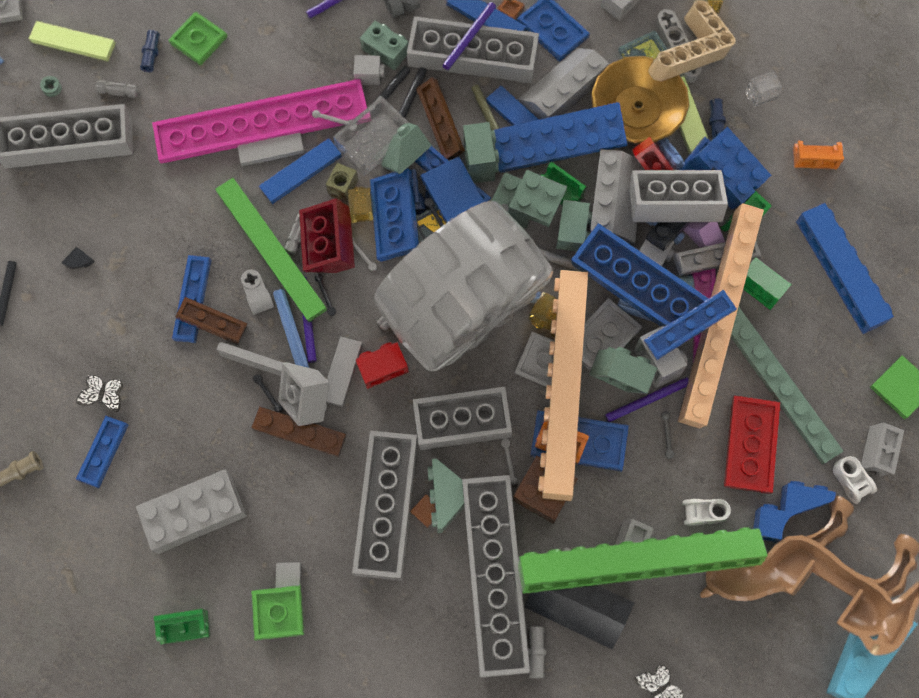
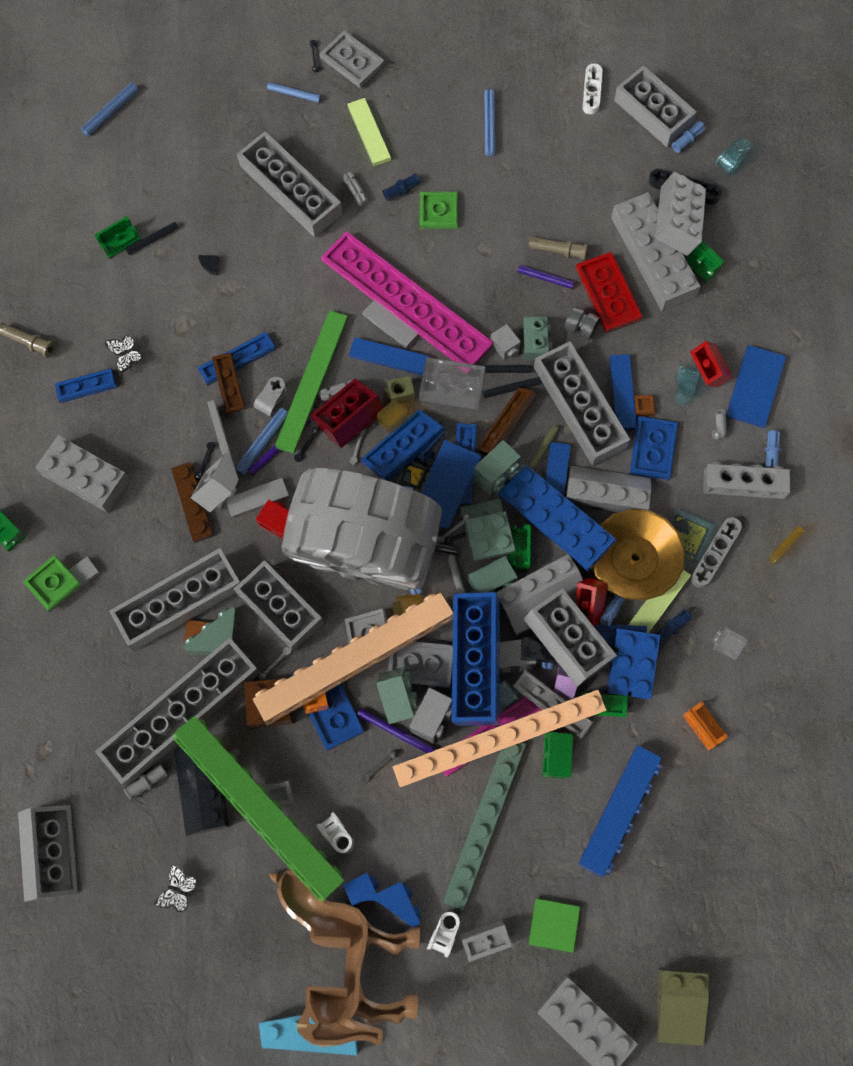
camera: 55 degrees right, 0 degrees up
(50, 80) = (327, 149): sand green bush -> none
(316, 114) = (439, 333): light grey hinge -> none
(405, 148) = (458, 413): sand green slope -> none
(469, 36) = (584, 391): dark purple bar -> none
(690, 325) = (463, 717): blue tile -> none
(712, 44) = (733, 575): tan beam -> none
(752, 444) = (416, 835): red plate -> none

